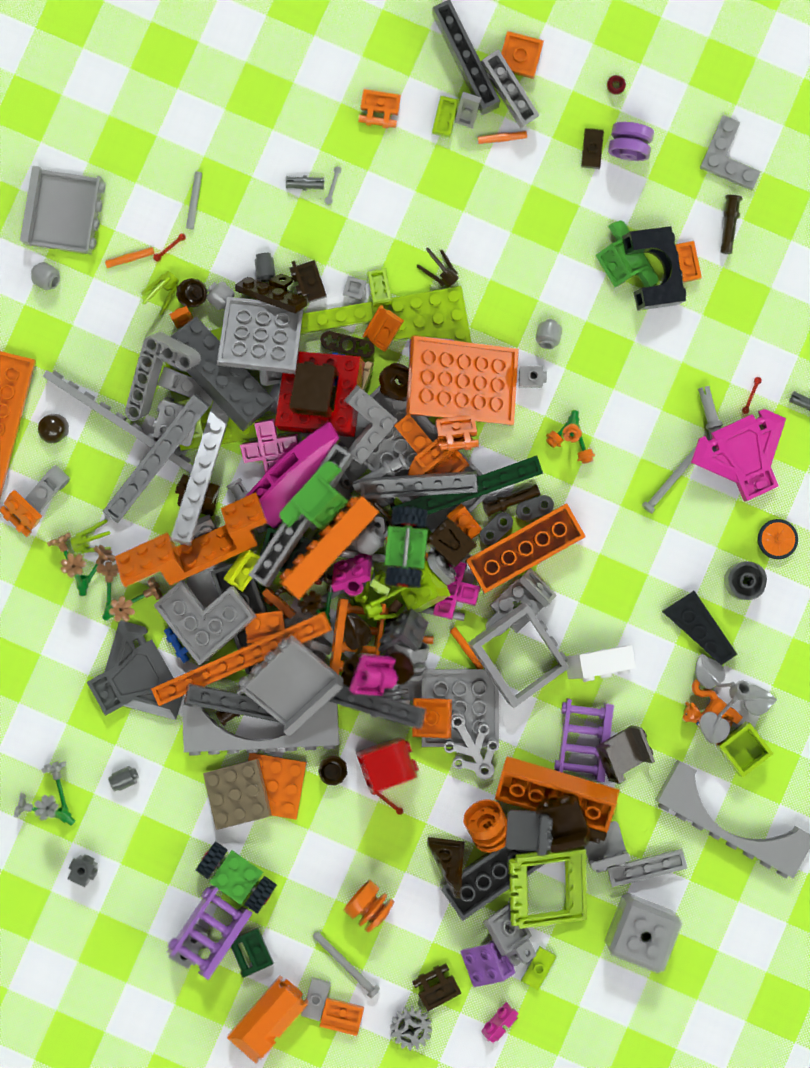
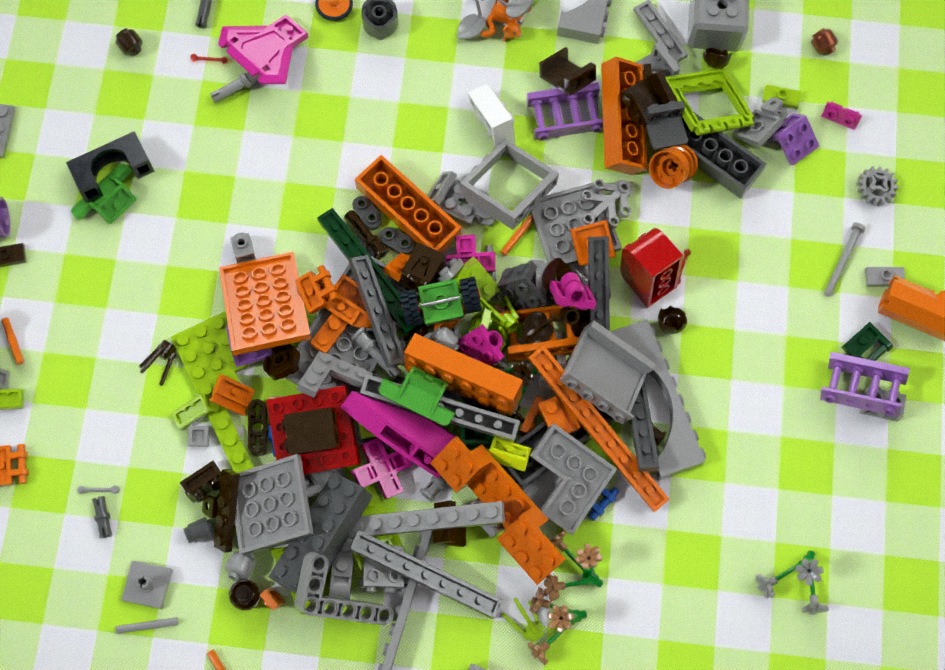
camera: 110 degrees left, 15 degrees down
(80, 876) = (853, 525): dark grey brick -> none
(123, 778) = (751, 514): dark grey brick -> none
(132, 674) = (647, 537): dark grey plate -> none
(157, 257) = (216, 645): clear red hinge -> none
(167, 281) = (239, 625): lime plant -> none
(230, 209) = (147, 584): none -> light grey tile
(236, 877) = (804, 377): plate -> none
(237, 794) = (726, 400): dark tan plate -> none
(282, 782) = (705, 372): orange plate -> none
(341, 1016) = (891, 248): orange plate -> none
(369, 906) = (784, 249): orange wheel -> none
(440, 992) = (836, 171): dark brown plate -> none
(449, 857) = (715, 191): dark brown wing -> none
(548, 334) = (197, 243): light grey head -> none
(571, 433) = (286, 190): orange plant -> none
(585, 1036) = (824, 41): none -> copper head
(599, 915) = (715, 58): none -> dark brown hair
(668, 484) = (336, 115): light grey bar -> none
(688, 261) = (95, 140): orange plate -> none
(696, 621) = (431, 45): black wing -> none
(731, 215) = (43, 117): dark brown pin -> none
(791, 318) = (129, 42): none -> dark brown head

